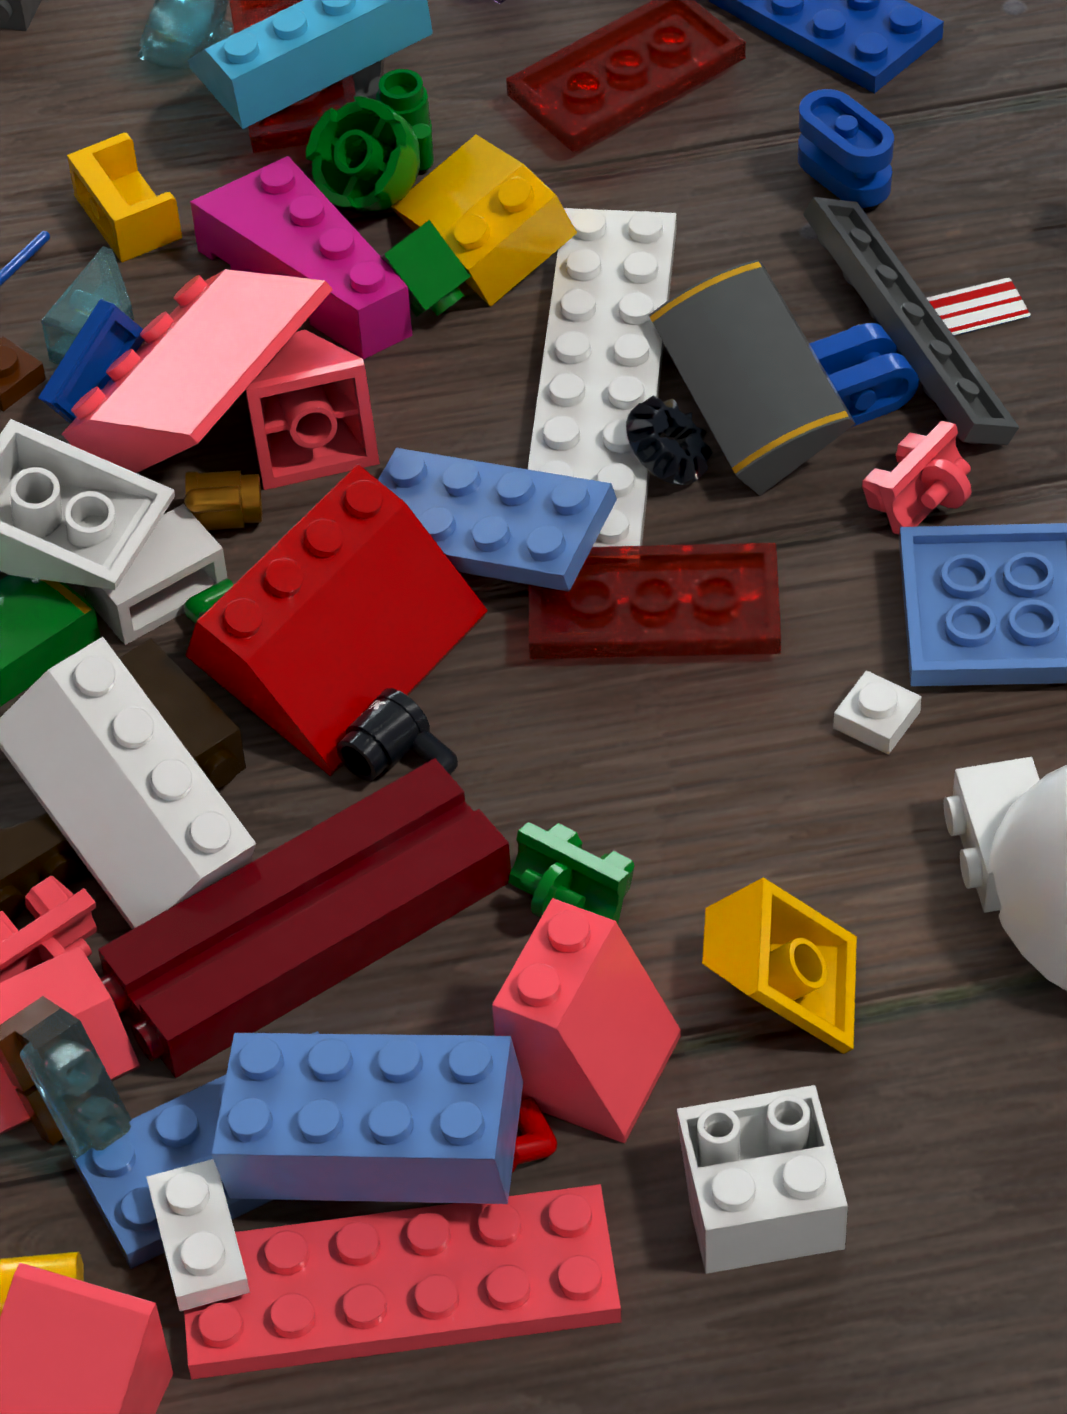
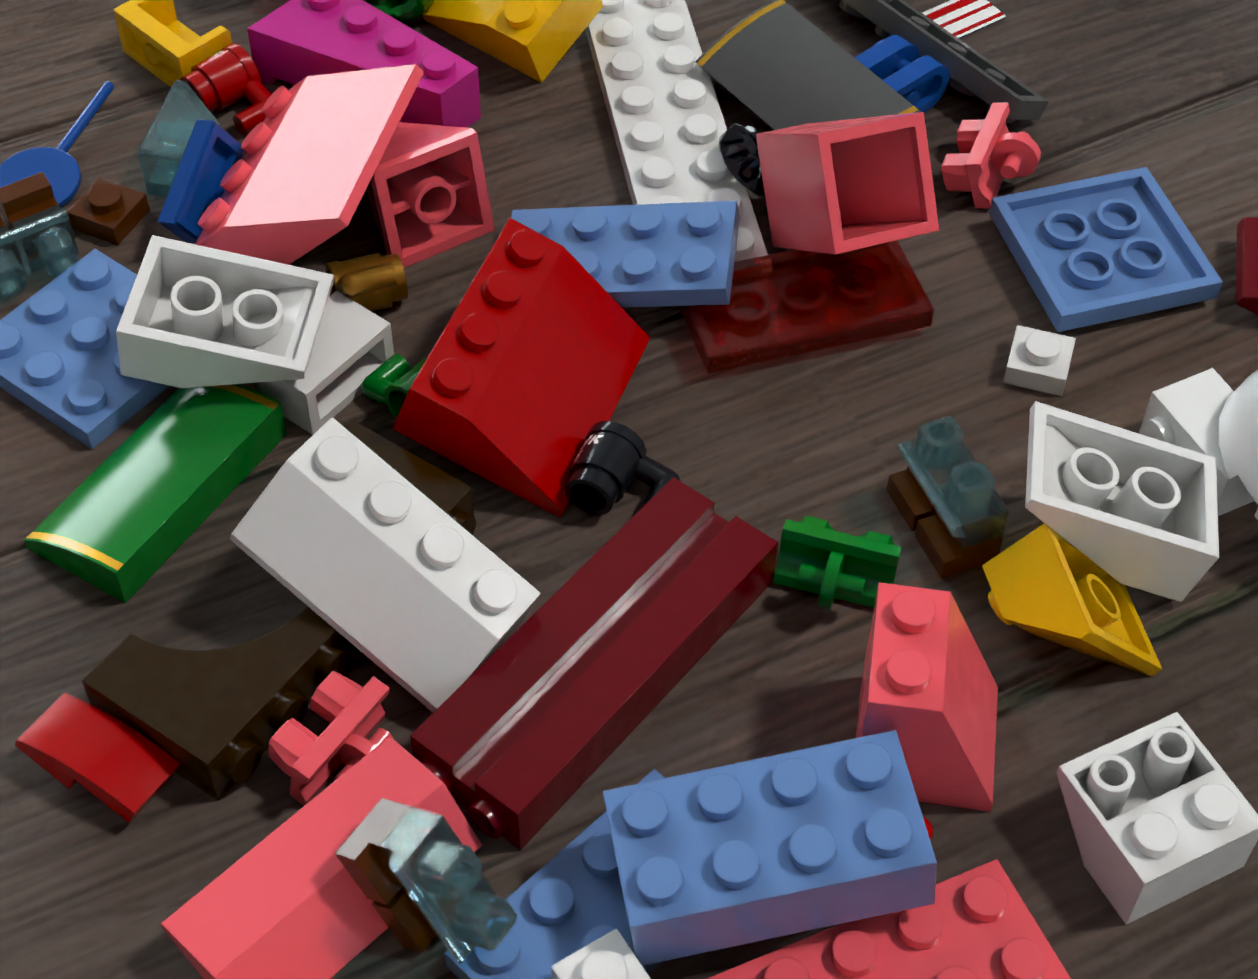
camera: 20 degrees left, 0 degrees up
(157, 252) = (227, 79): none -> red piece
(428, 270) = (490, 48): green brick -> none
(702, 832) = (948, 499): none -> clear light blue hips
(728, 487) = (848, 183): none -> coral slope
(858, 868) = (1124, 500): none -> white slope

